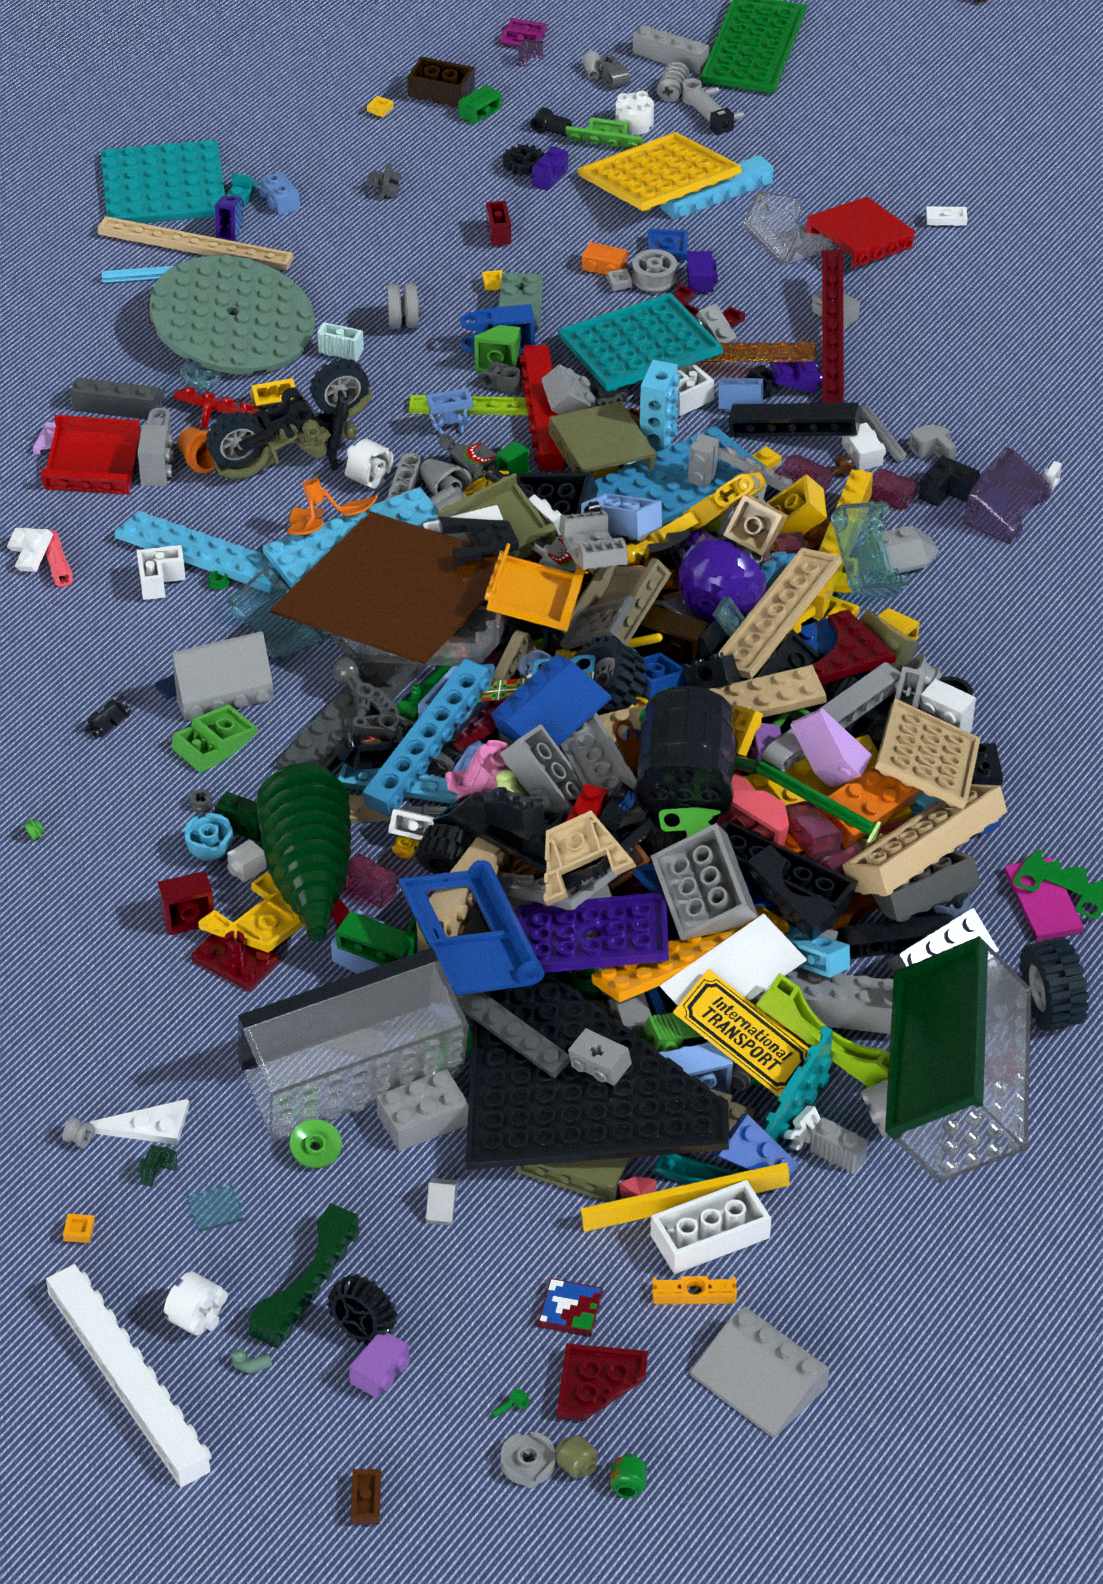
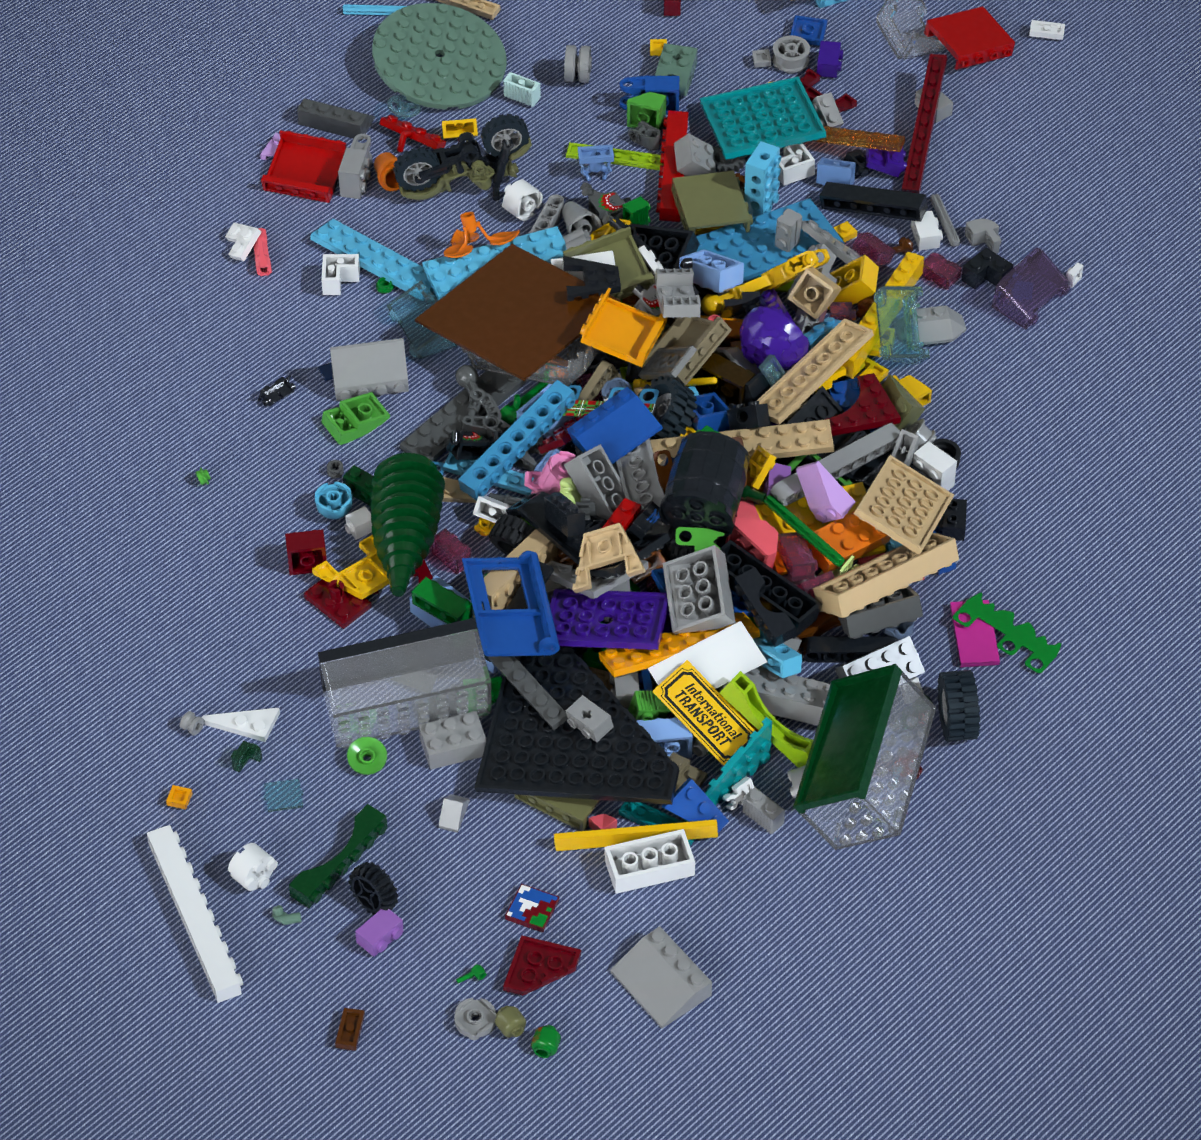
camera: 10 degrees right, 5 degrees up
(603, 258) = (752, 38): orange brick -> none
(713, 1291) = (613, 907): light orange piece -> none

